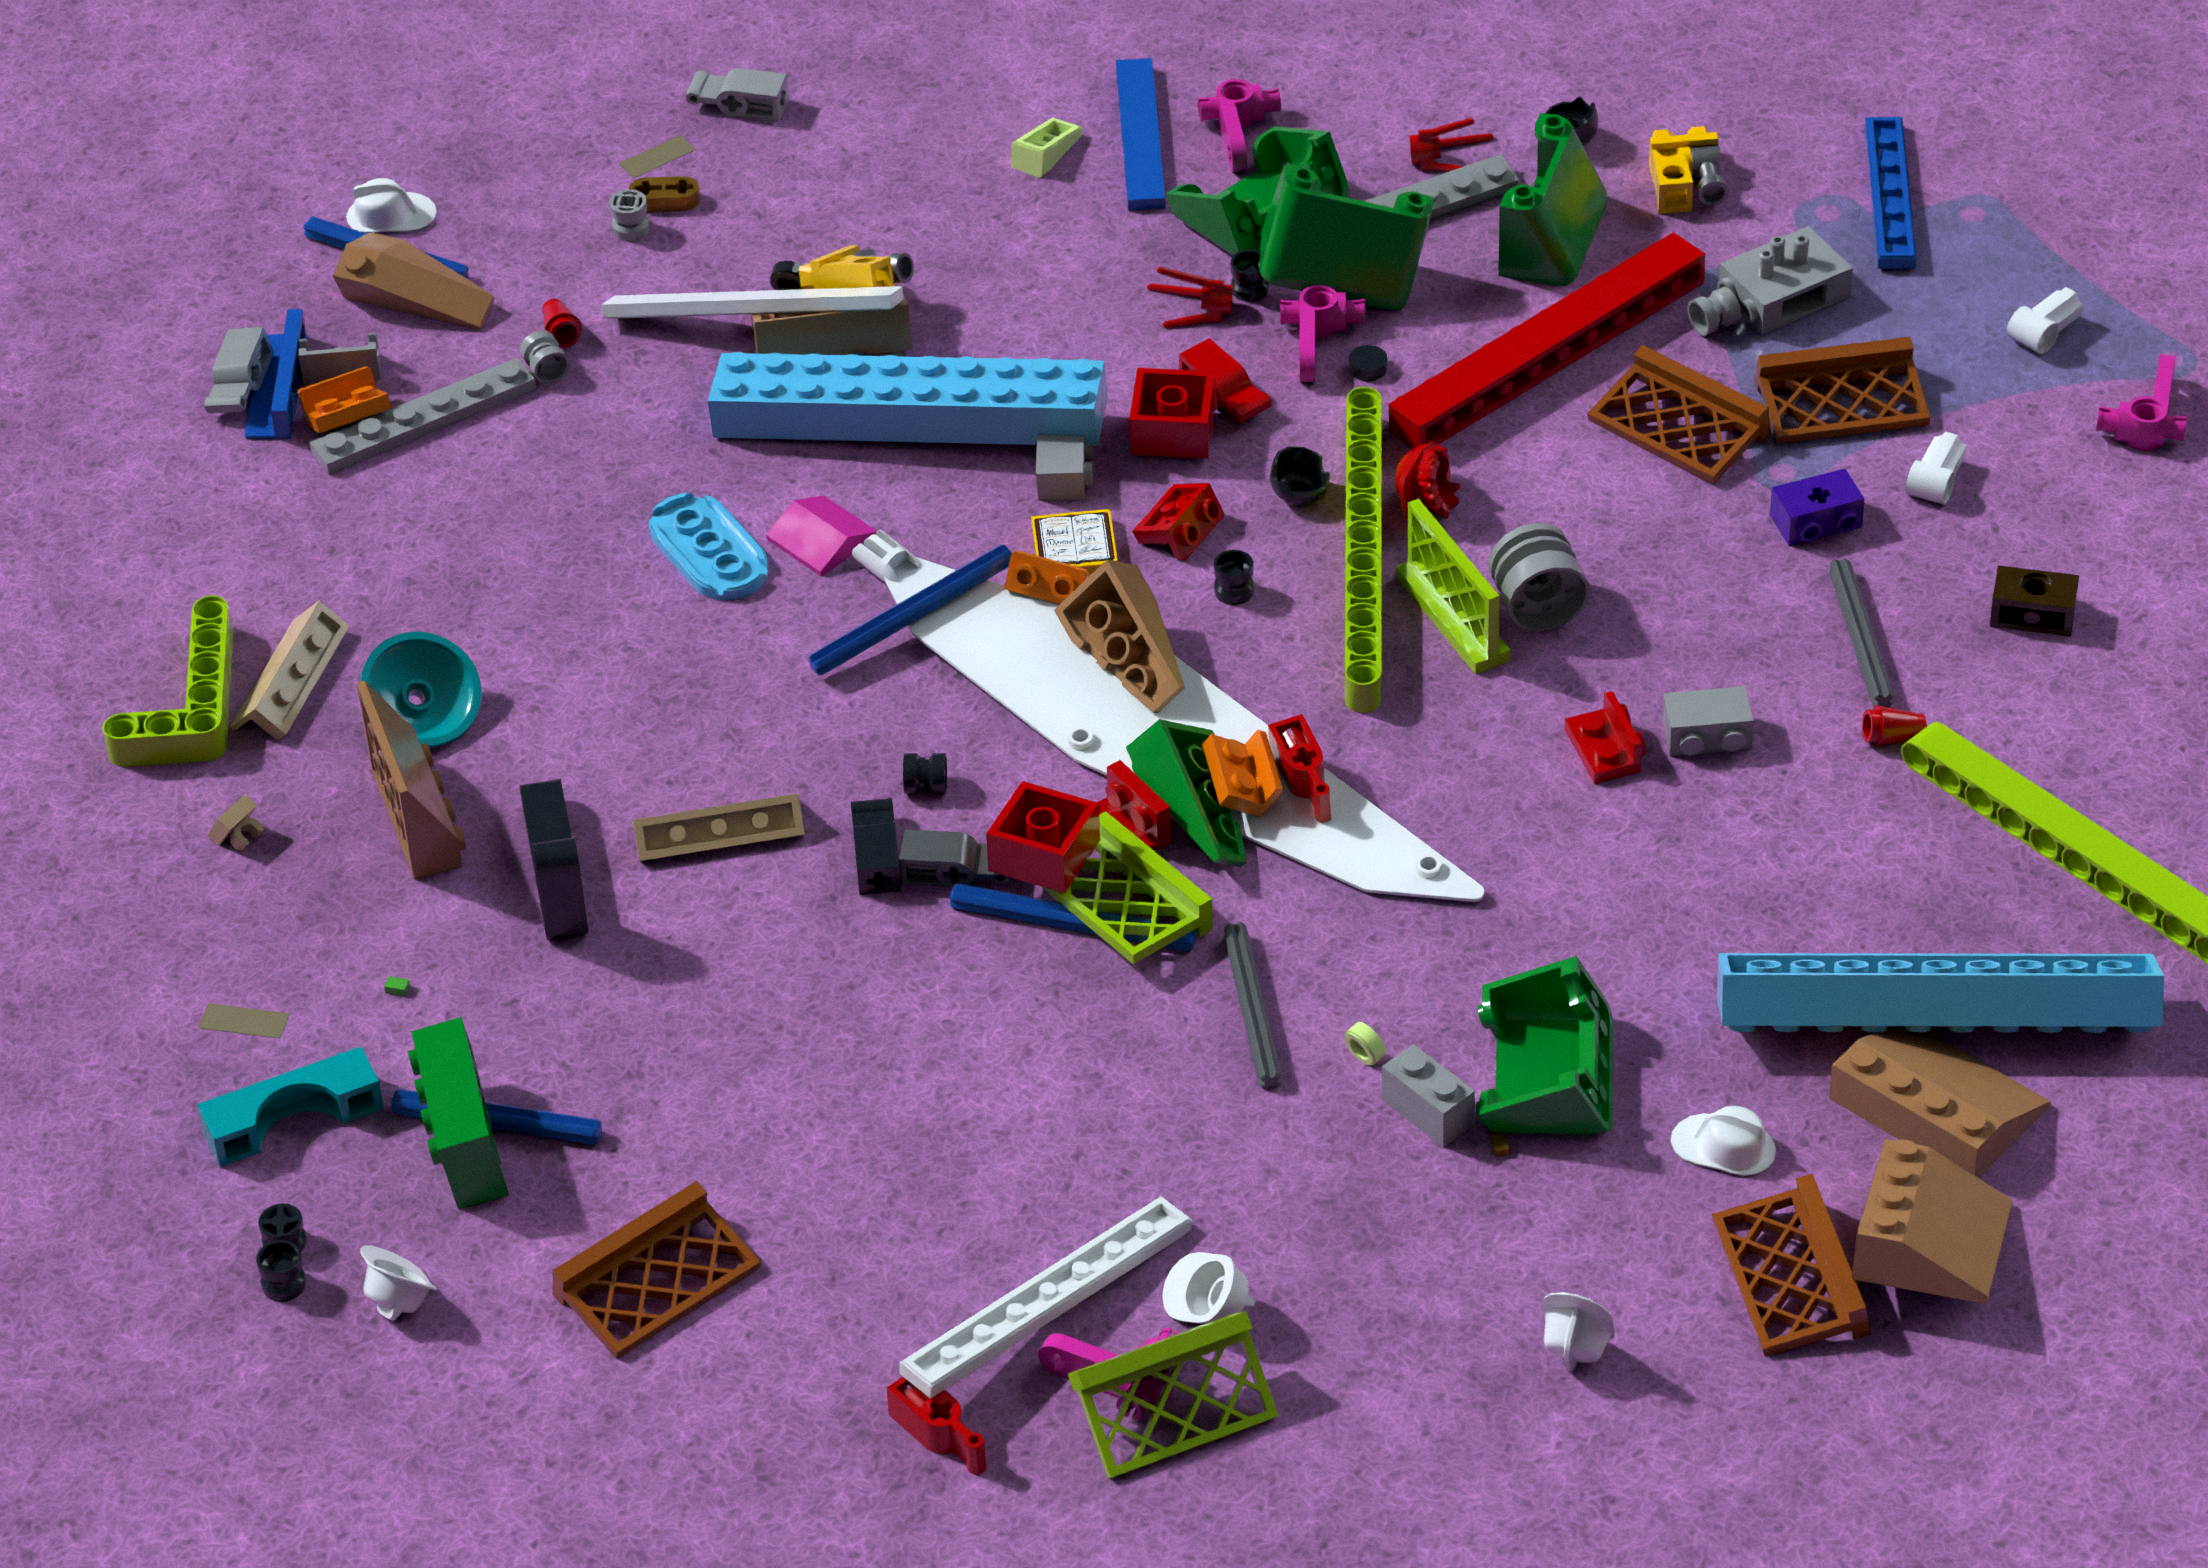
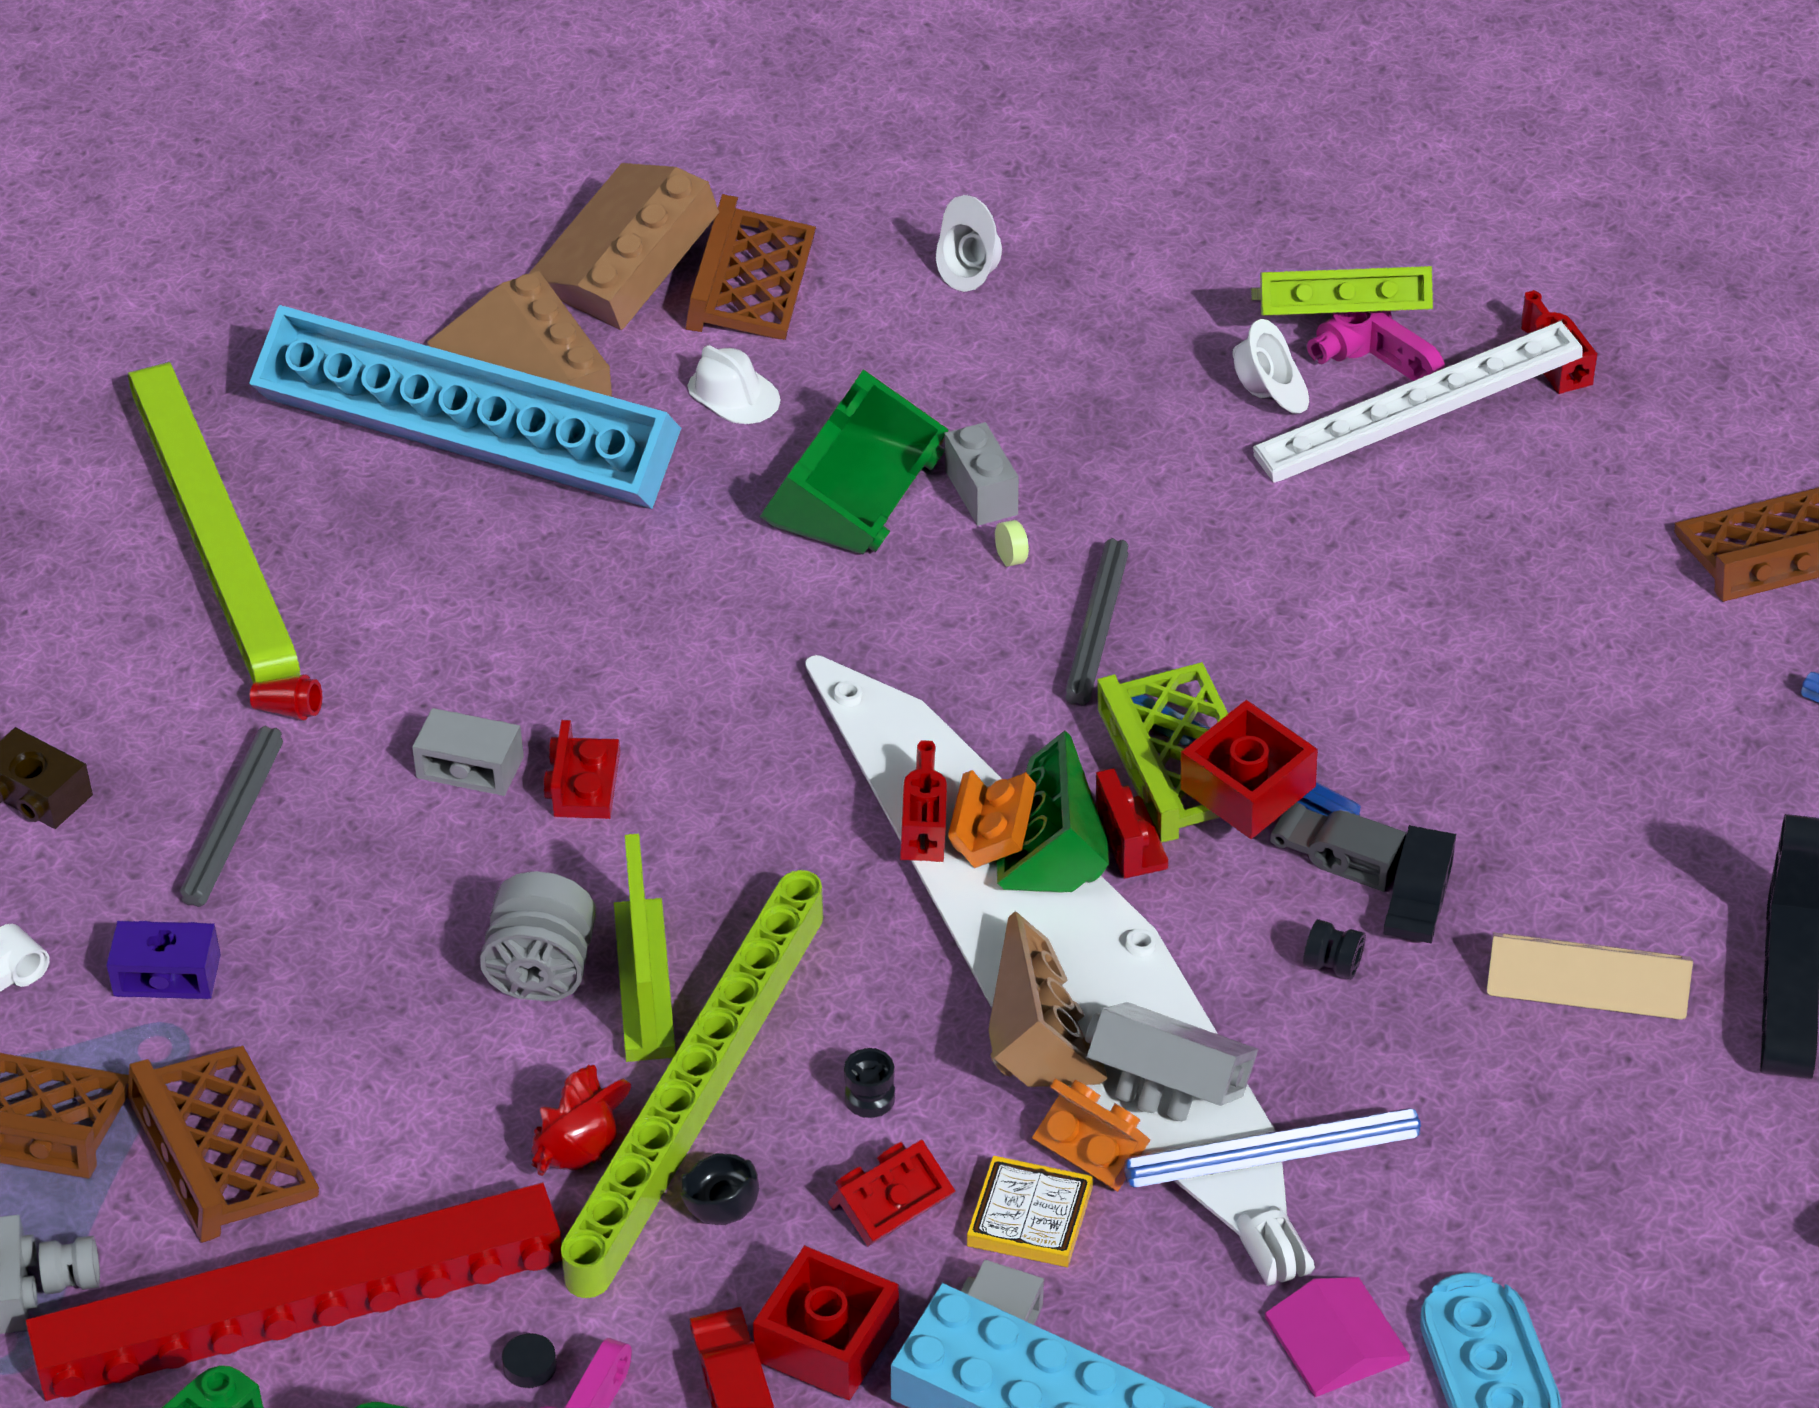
camera: 160 degrees left, 0 degrees up
(1008, 610) = (1170, 1056): none -> light grey piece

